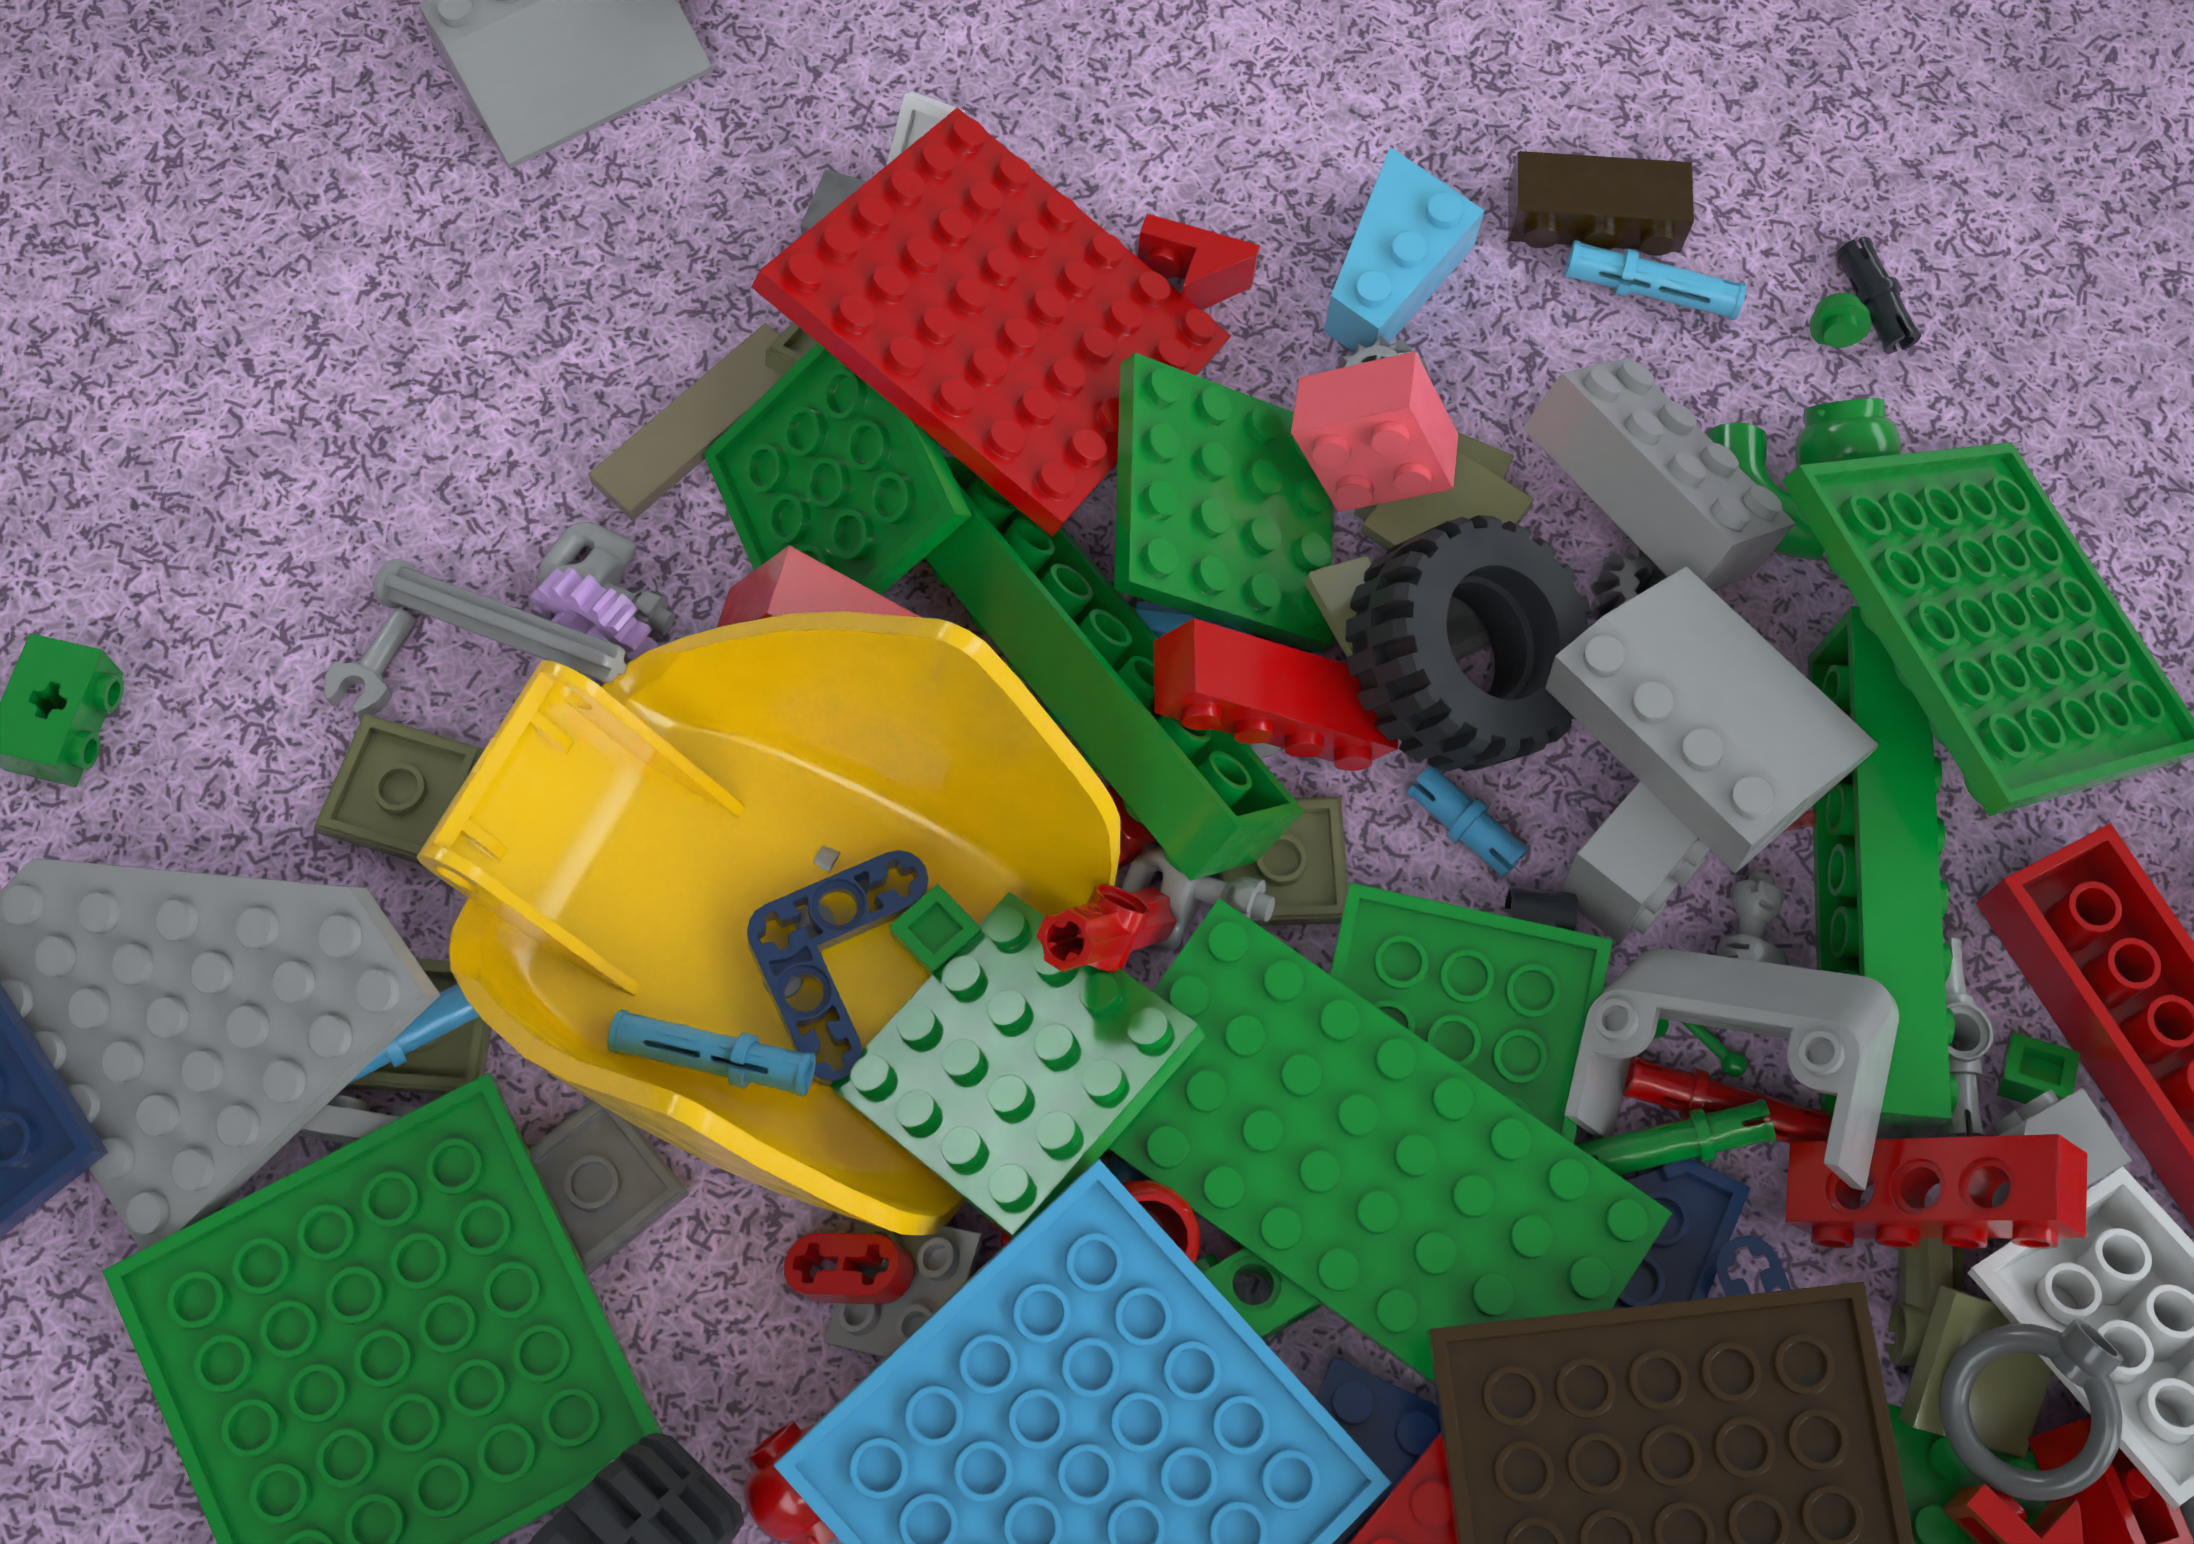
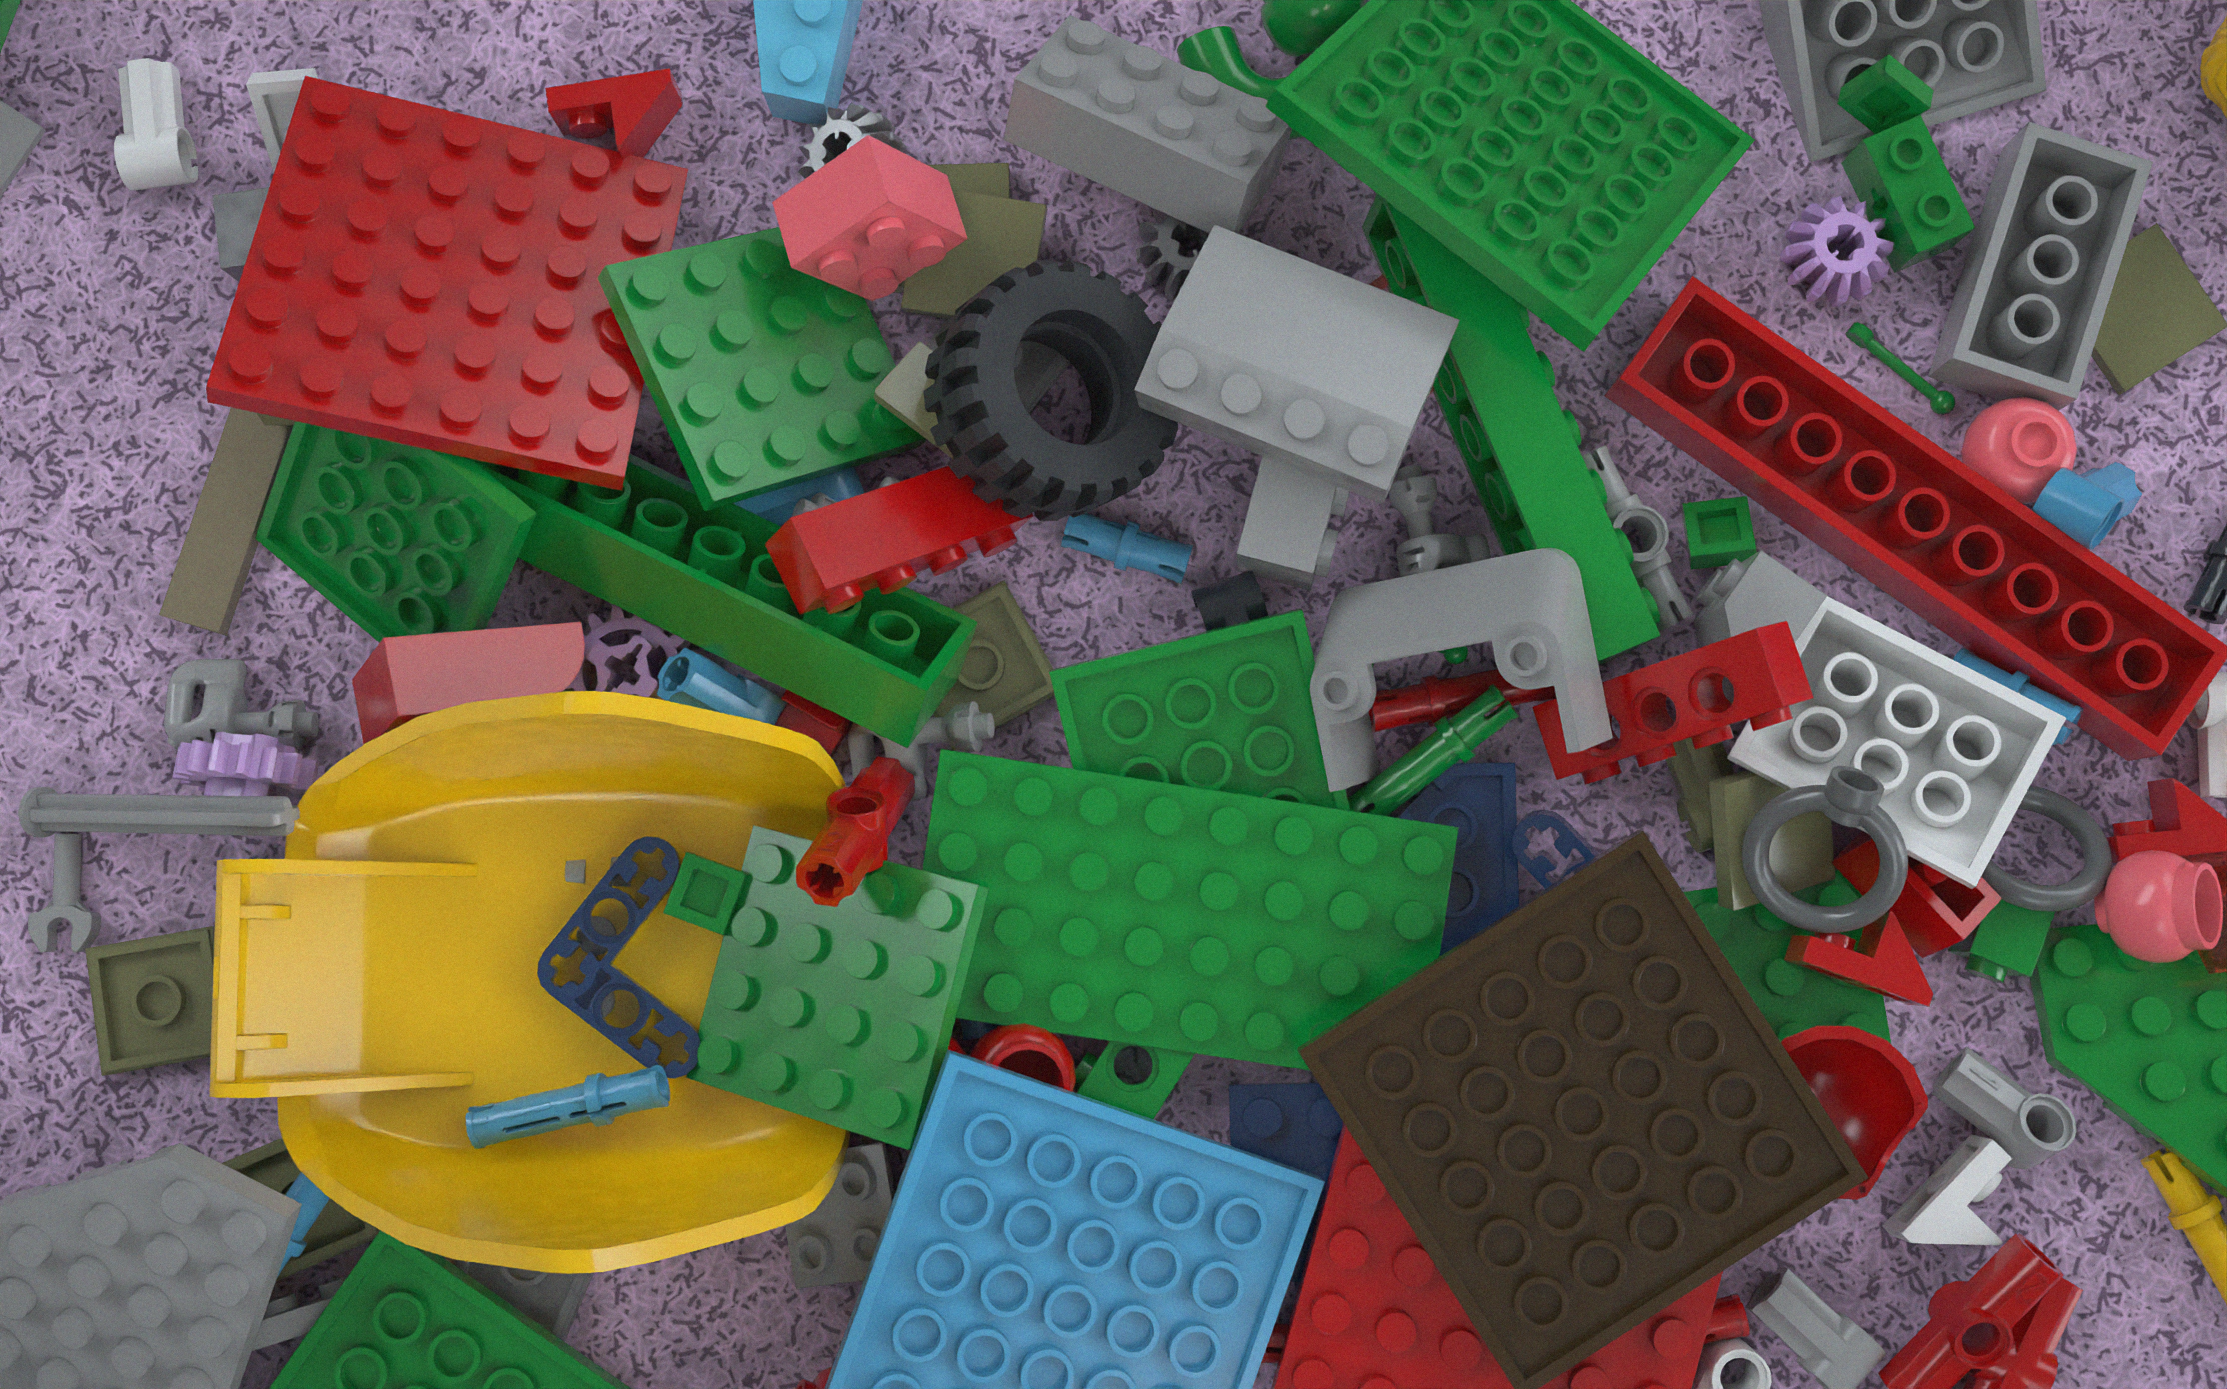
camera: 20 degrees left, 15 degrees up
(800, 113) = (154, 143): none -> white piece
(847, 1283) = (791, 1238): red beam -> none

